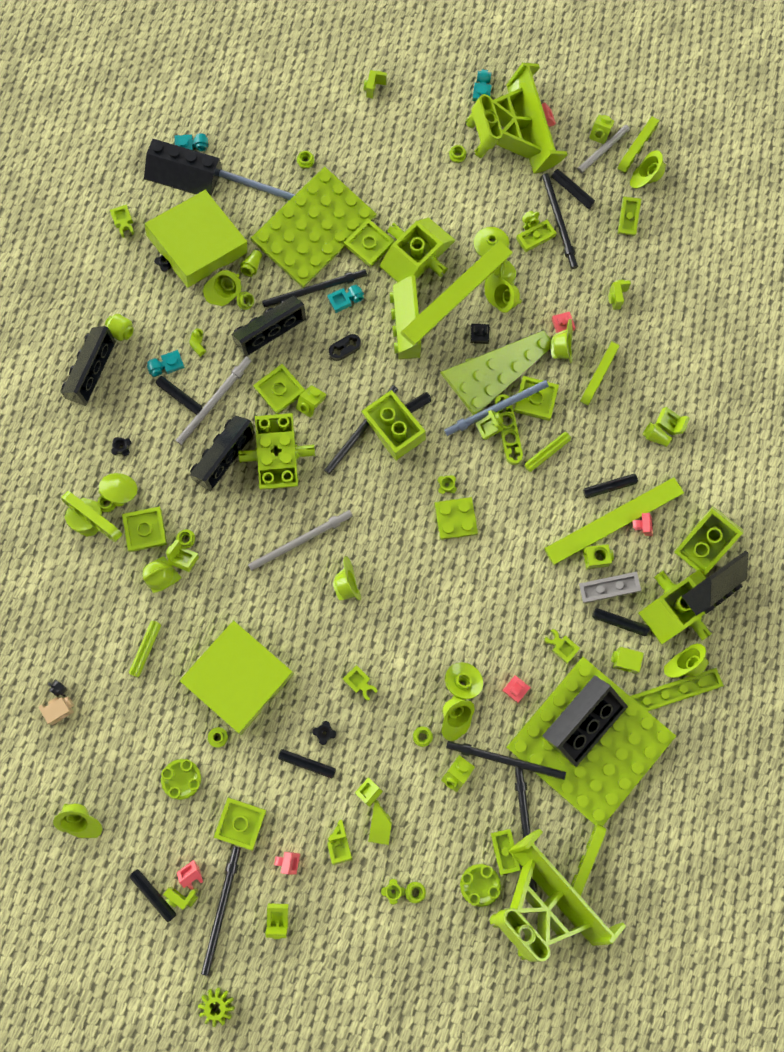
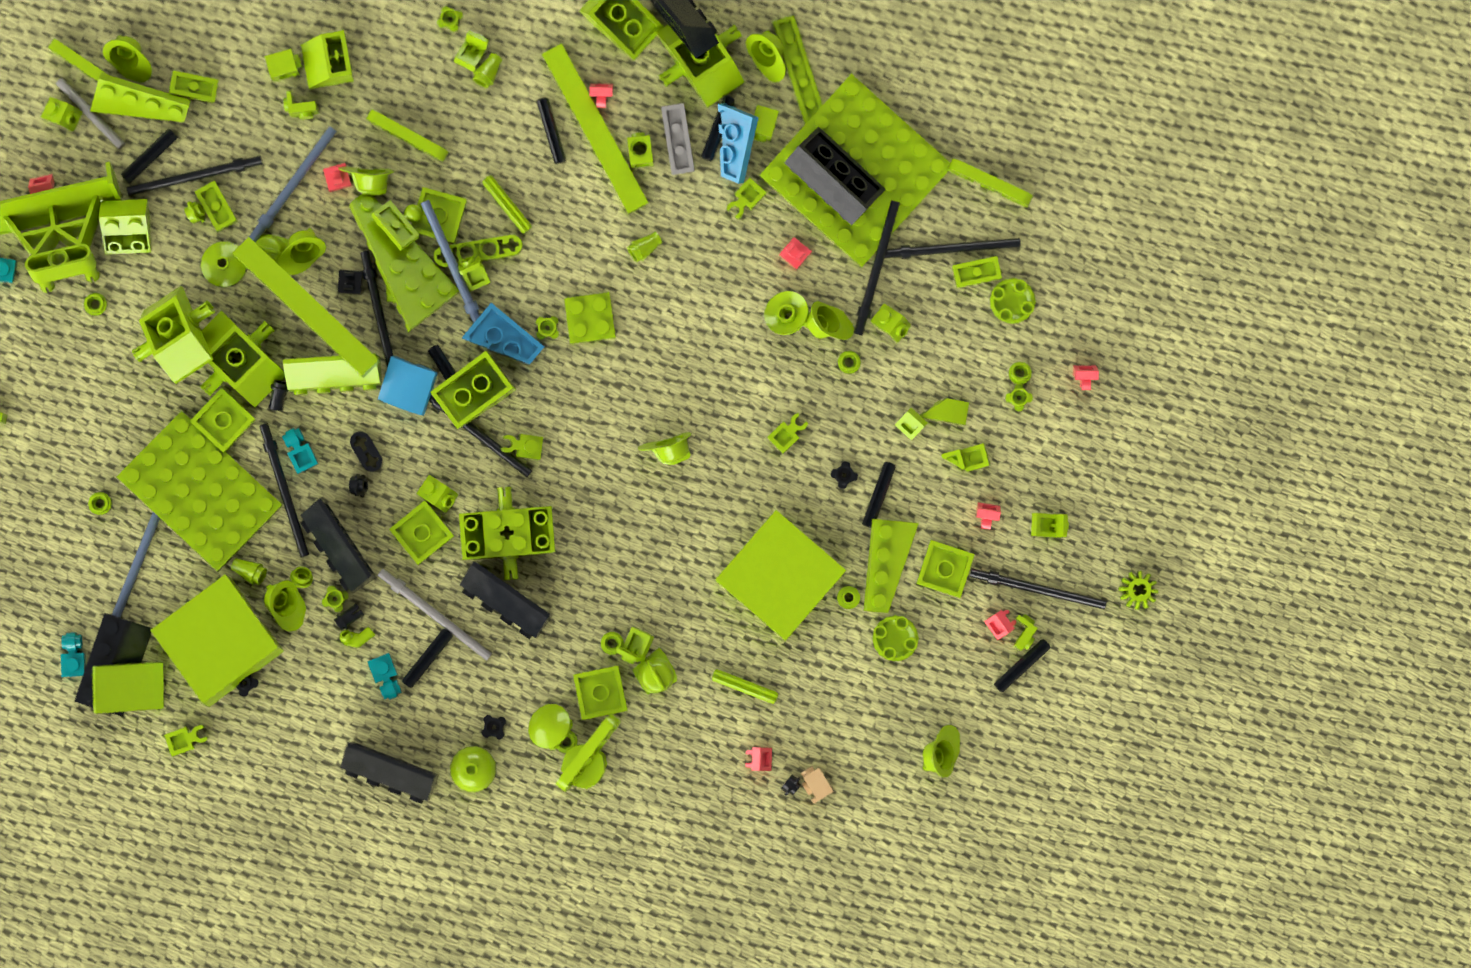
camera: 90 degrees left, 10 degrees up
(81, 662) = (760, 759): none -> coral tile
(87, 430) = (473, 769): none -> lime cylinder
(120, 327) = (337, 734): lime head -> none
(162, 176) = (128, 687): none -> lime tile
(213, 335) = (347, 618): none -> black pin
(228, 321) = (341, 597): none -> lime plate
(248, 770) = (887, 556): none -> lime wing
(317, 340) = (358, 485): none -> black plate
(333, 523) = (593, 465): light grey bar -> none
(349, 470) = (526, 446): none -> lime plate
(387, 281) = (278, 394): none -> black pin
(397, 375) = (407, 385): none -> dark azure slope
(414, 955) = (1085, 374): none -> coral tile
(433, 201) = (175, 335): none -> lime slope
(440, 447) = (502, 335): none -> dark azure wing
(485, 347) = (370, 275): none -> black bar
(517, 561) = (643, 247): none -> lime cone
(518, 171) = (125, 226): none -> lime slope
(526, 363) = (398, 225): none -> lime plate
(527, 271) = (266, 220): none -> sand blue bar
(536, 943) = (1021, 213): lime piece -> none
(615, 176) = (135, 100): none -> lime wing
(616, 637) = (737, 141): none -> dark azure wing
(650, 280) = (283, 65): none -> lime brick
(657, 313) = (327, 60): none -> lime slope
(702, 403) = (446, 13): none -> lime plate

